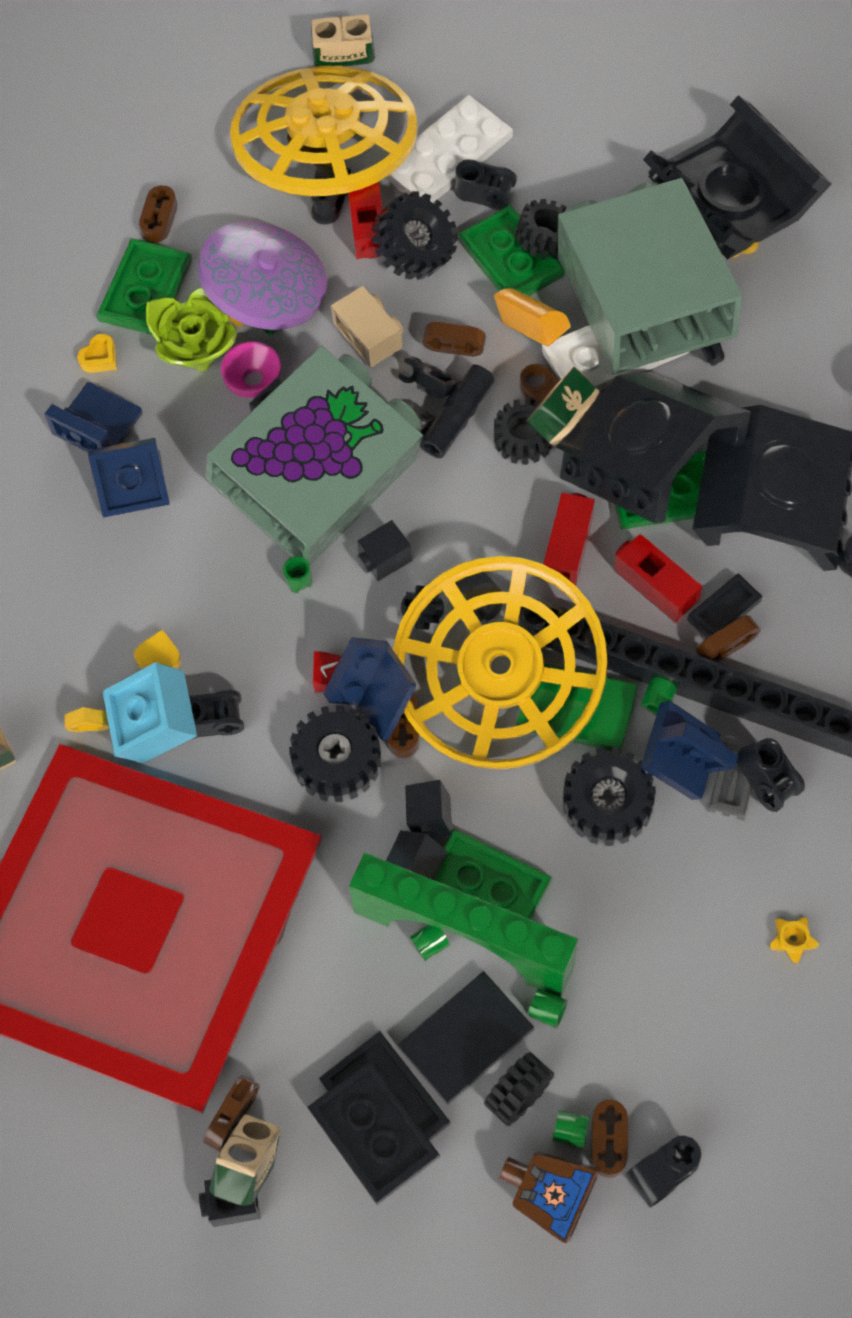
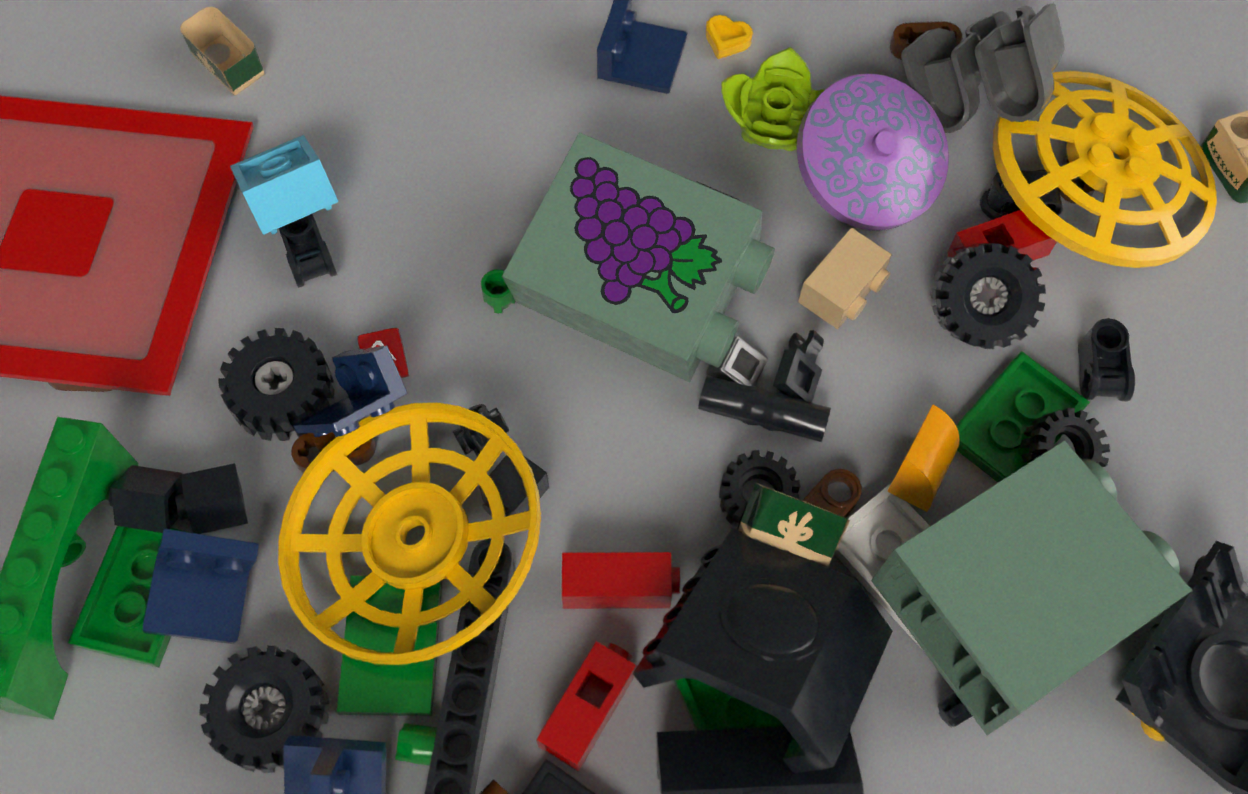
camera: 70 degrees right, 0 degrees up
(86, 720) = (278, 131): yellow tile -> none
(129, 477) = (573, 94): dark blue bracket -> none
(142, 276) = (832, 47): green tile -> none
(159, 650) = (376, 184): yellow tile -> none
(240, 149) = (1007, 55): none -> dark grey piece
(247, 359) = (752, 164): dark pink piece -> none
(384, 551) = (548, 372): black brick -> none
(454, 339) = (865, 381): reddish brown beam -> none
(459, 135) = (1160, 318): white plate -> none
(499, 829) = (199, 586): none -> dark blue bracket

